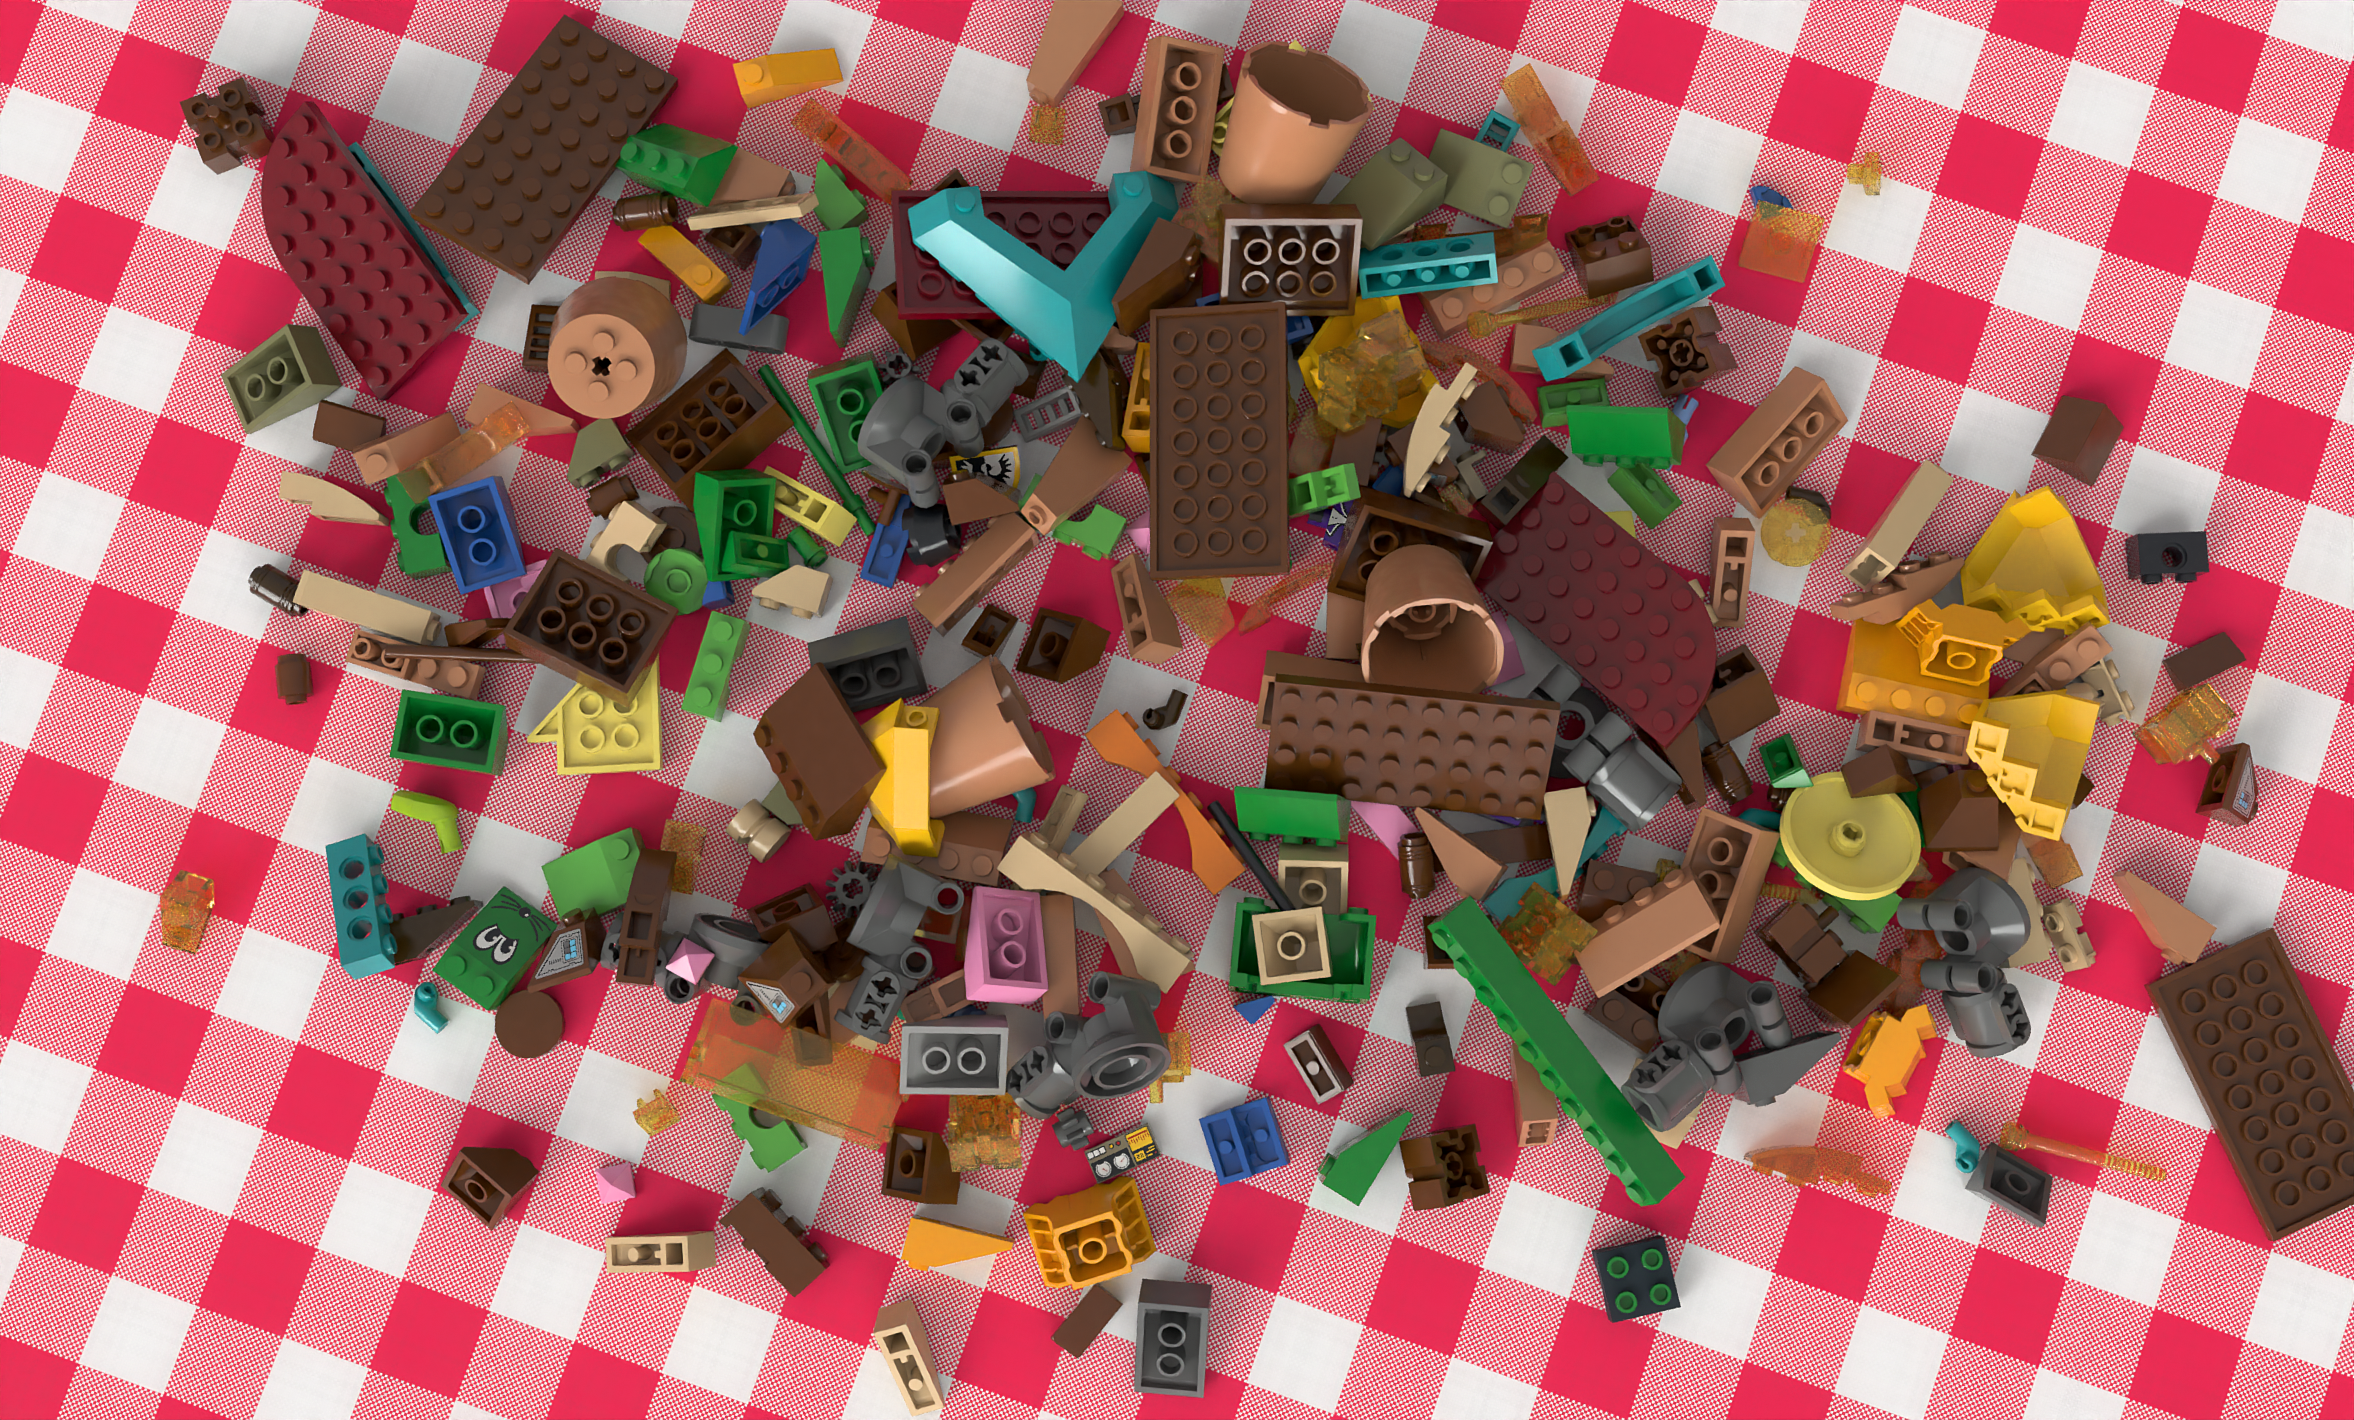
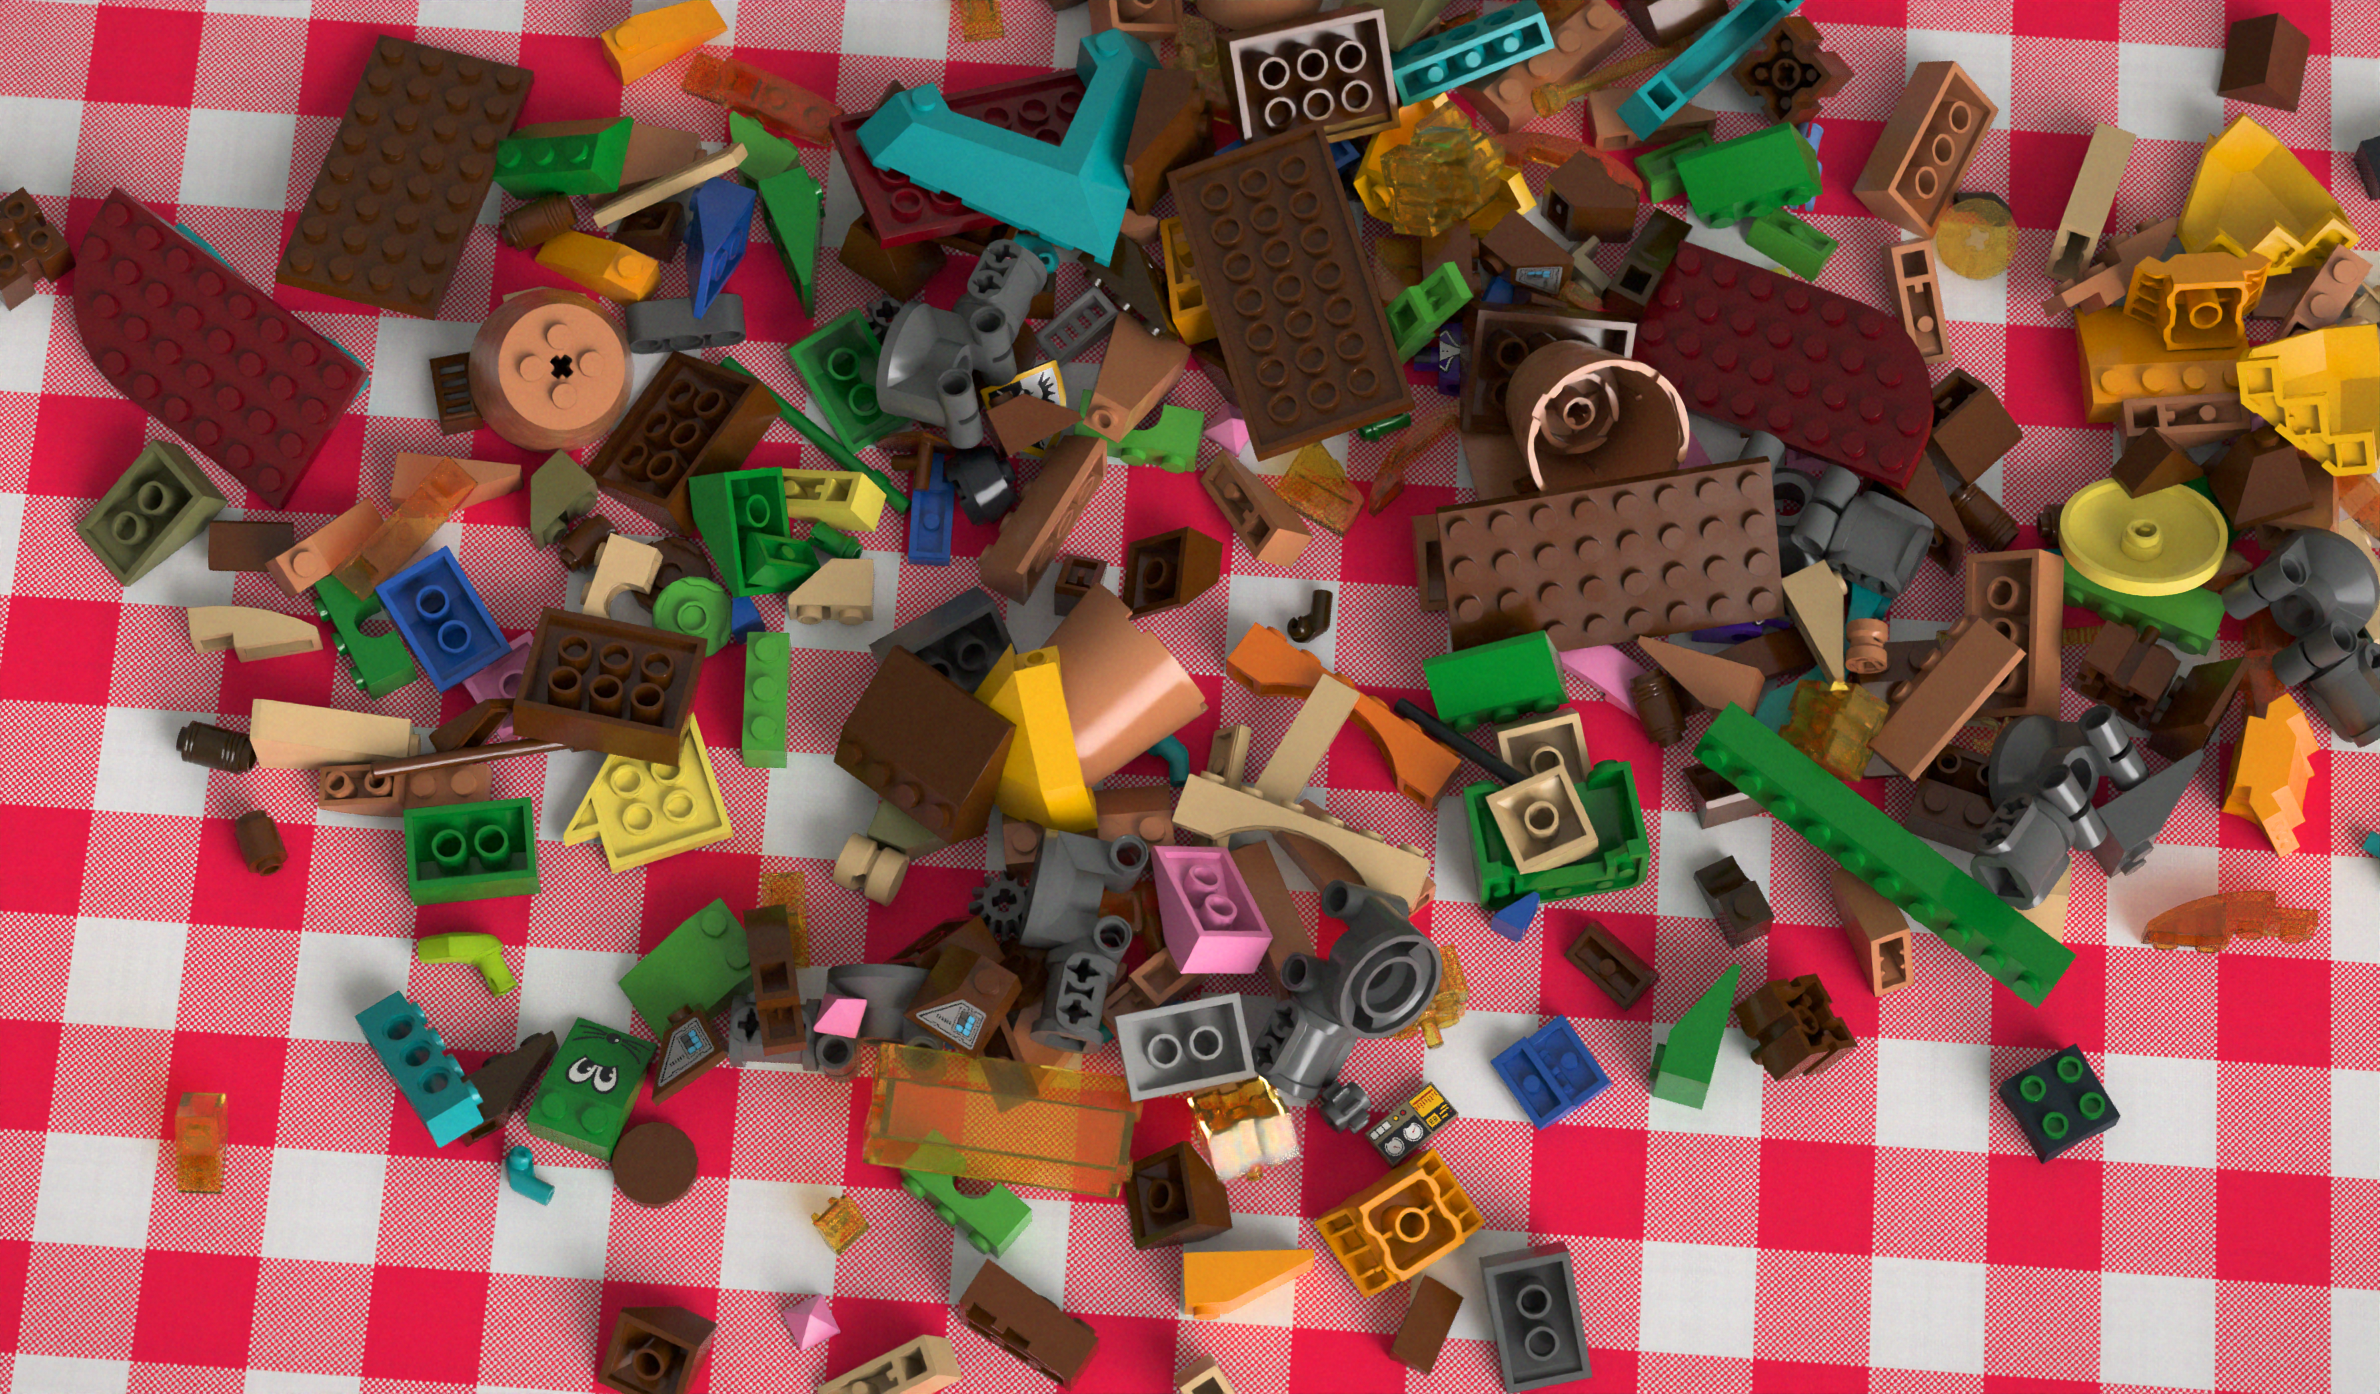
camera: 20 degrees left, 15 degrees down
(1427, 437) = (1529, 214): tan slope -> none
(1596, 870) = (1866, 646): none -> nougat wheel
(1785, 763) = (2046, 485): green slope -> none

